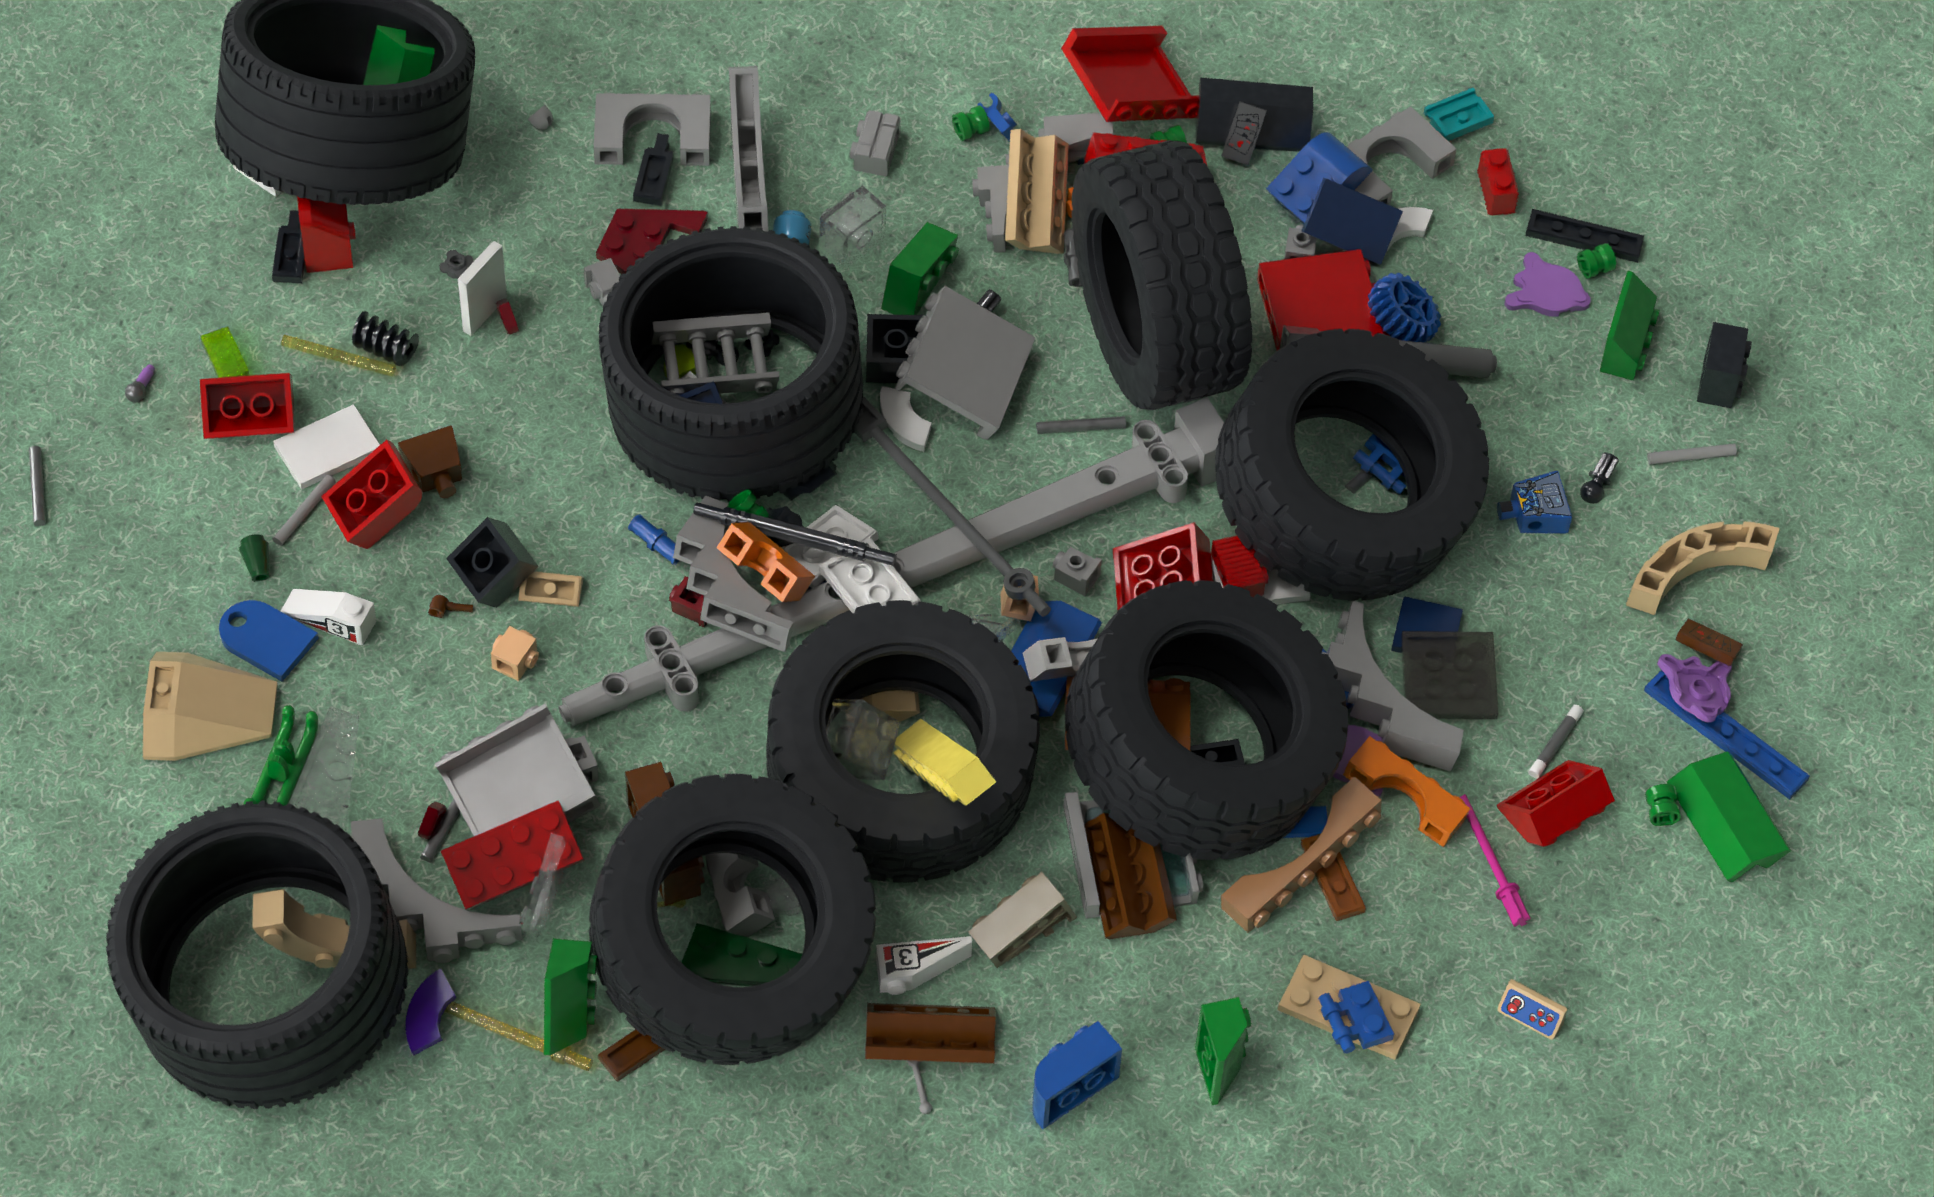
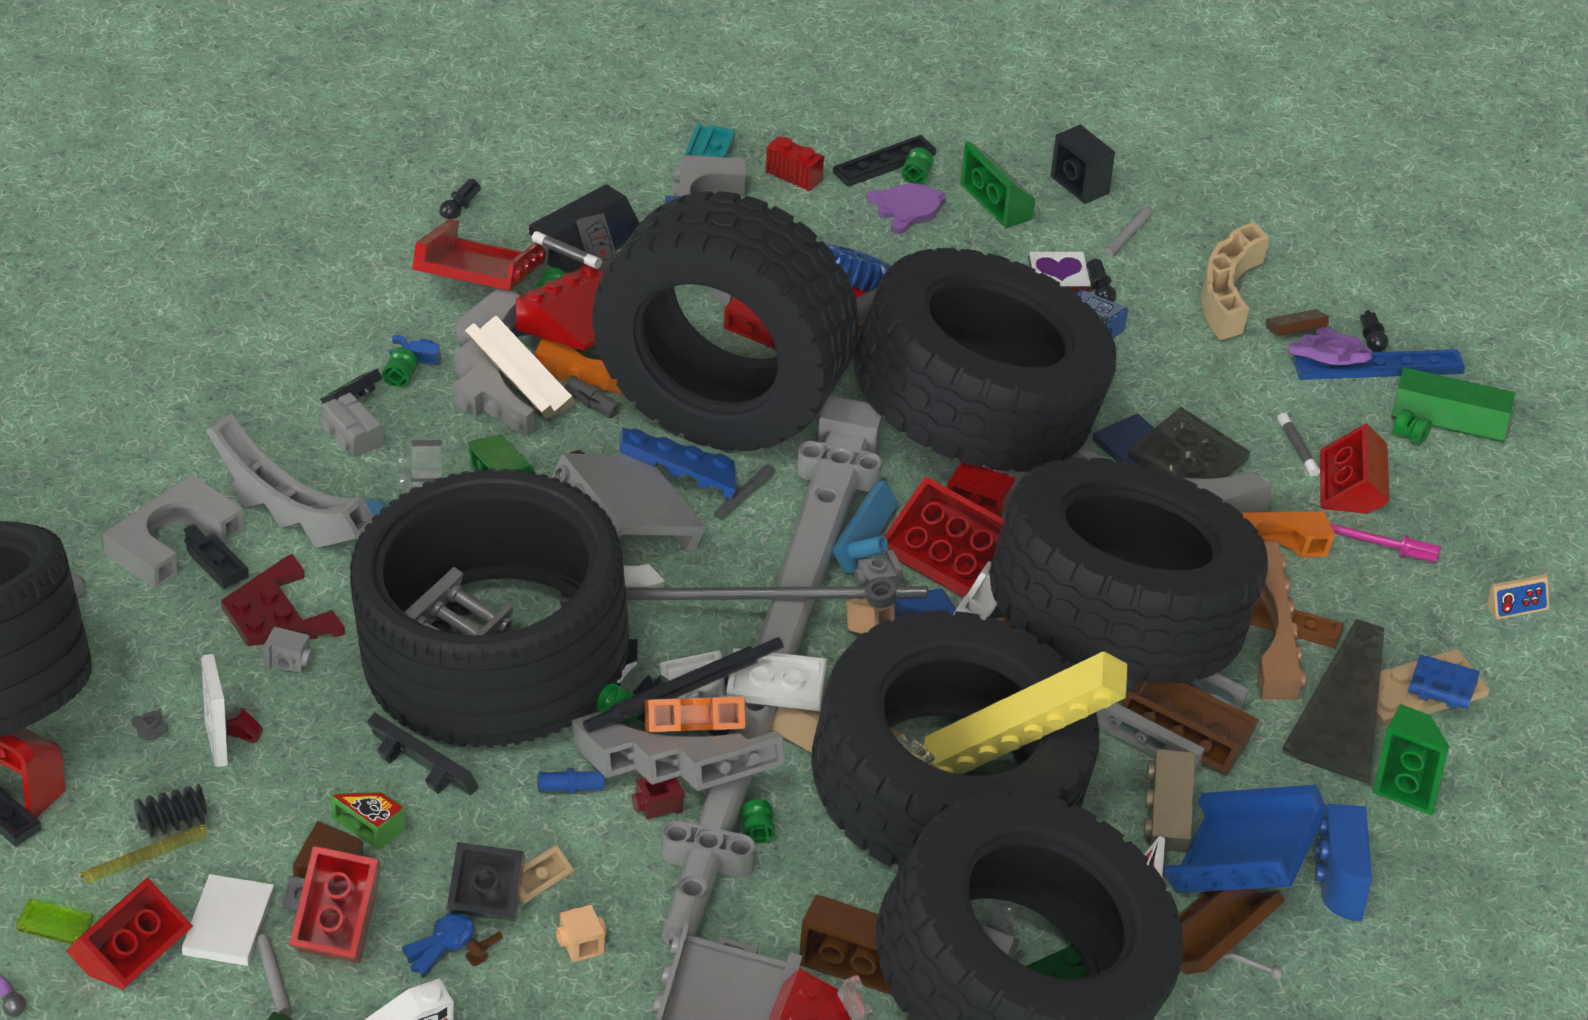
camera: 50 degrees left, 15 degrees down
(437, 580) = (449, 933): none -> blue piece
(498, 452) = (369, 816): none -> slope
(587, 417) = (442, 768): none -> black hinge
(732, 678) = (758, 820): none -> green wheel
(926, 114) = (362, 385): none -> black plate
(1018, 999) = (1250, 839): none -> blue panel
(1062, 371) = (680, 459): none -> blue wing
(1117, 525) = (861, 535): none -> dark azure piece
(1192, 17) = (452, 208): none -> black axle
(1195, 119) = (566, 250): none -> flat silver bar
(1265, 963) = (1342, 713): none -> clear smoke wing
(1581, 442) = (1065, 267): none -> tile
(1752, 711) = (1373, 332): none -> black axle

